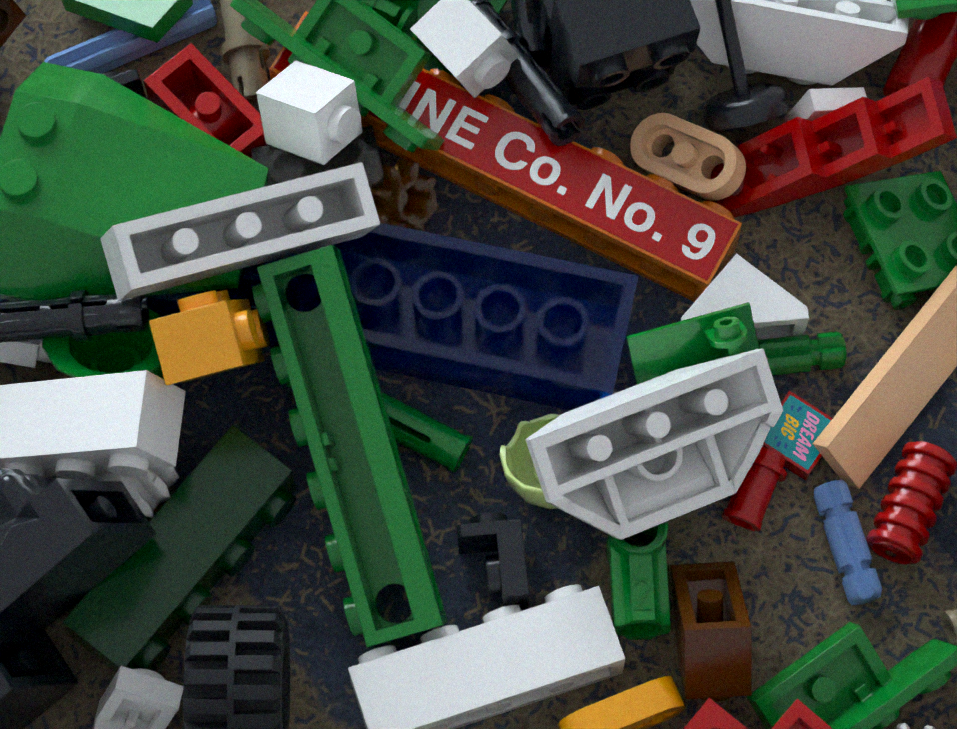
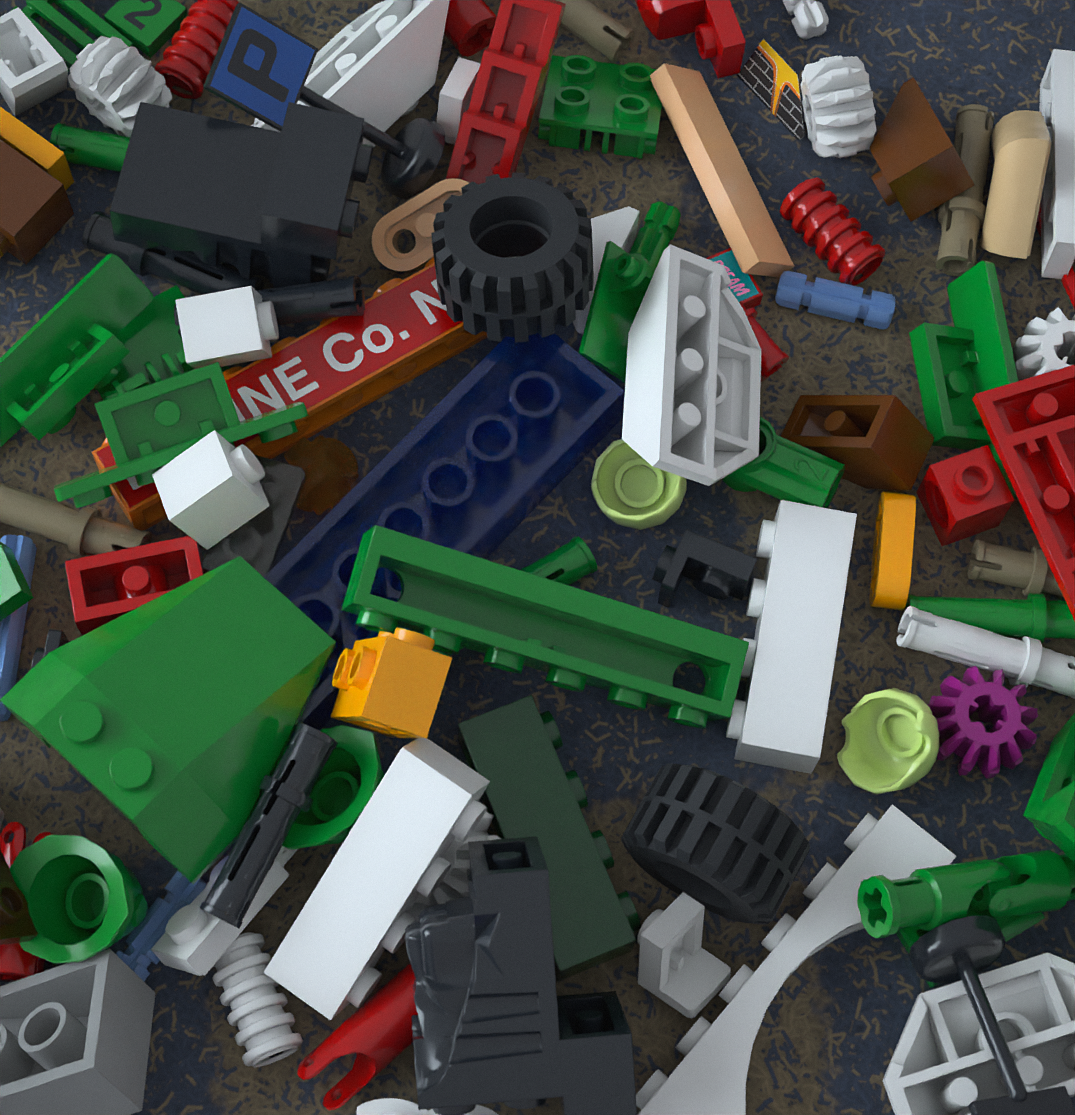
camera: 65 degrees left, 0 degrees up
(239, 231) = (307, 603): white brick -> none
(685, 190) = (522, 292): none -> black tyre

